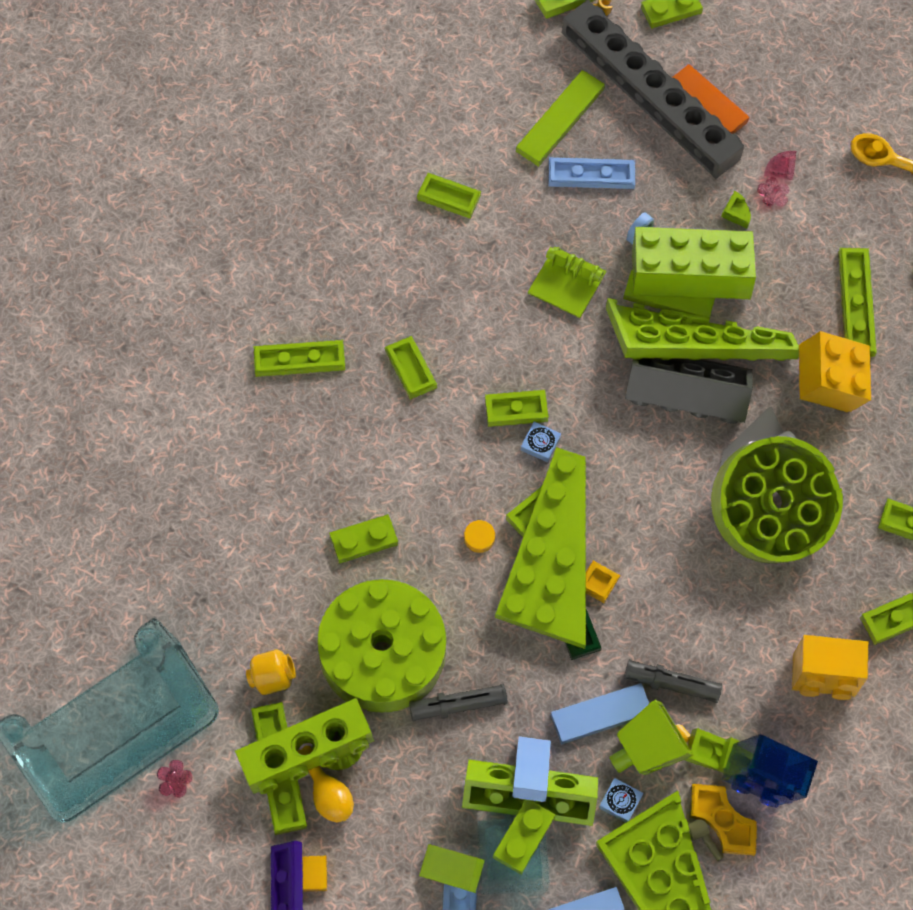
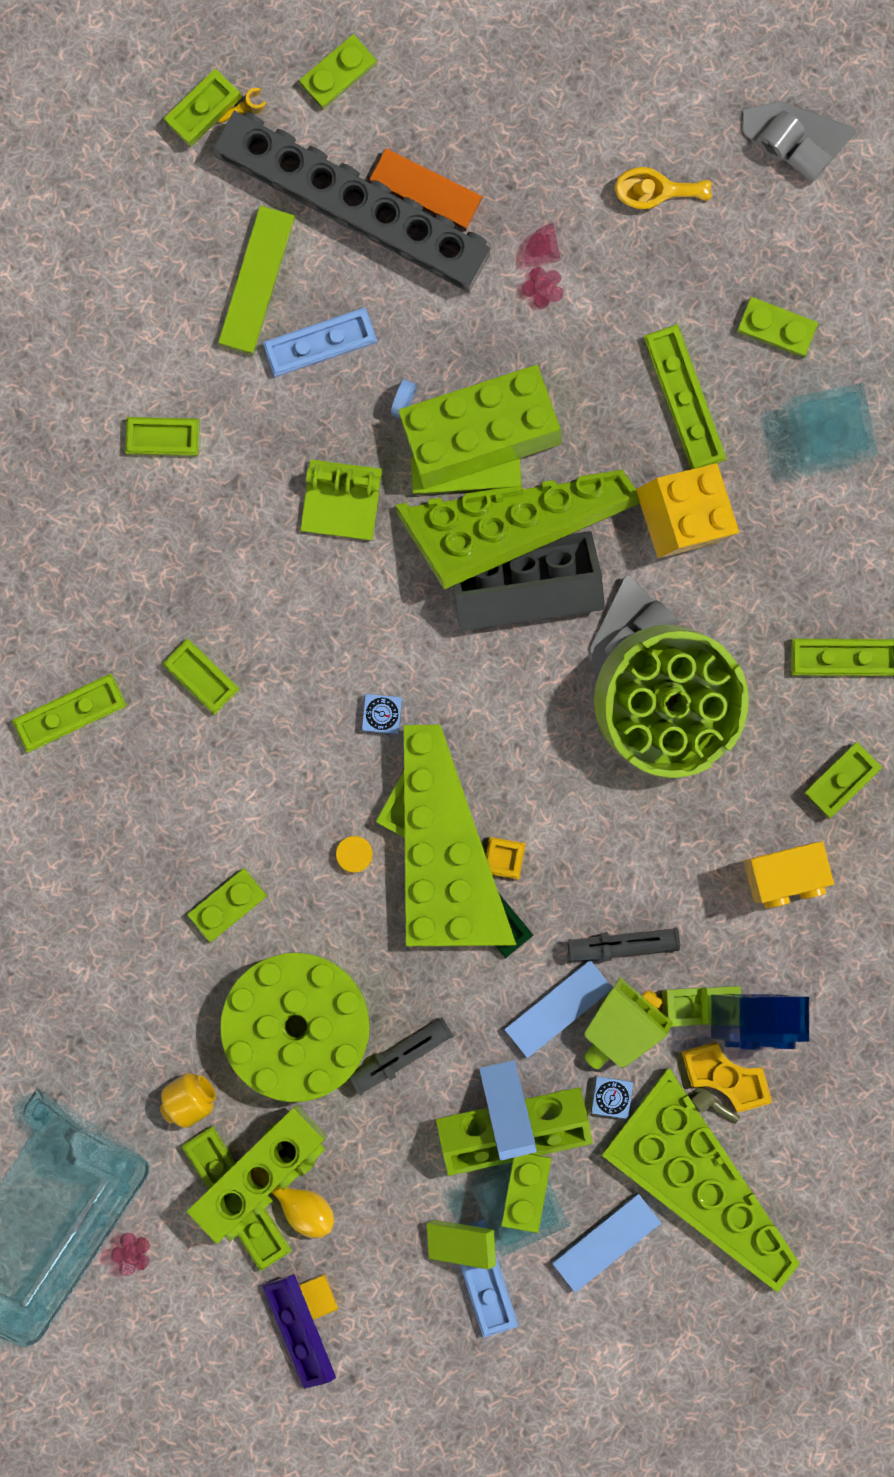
camera: 20 degrees left, 20 degrees up
(516, 408) = (340, 685): lime plate -> none
(737, 210) = (509, 328): lime tile -> none

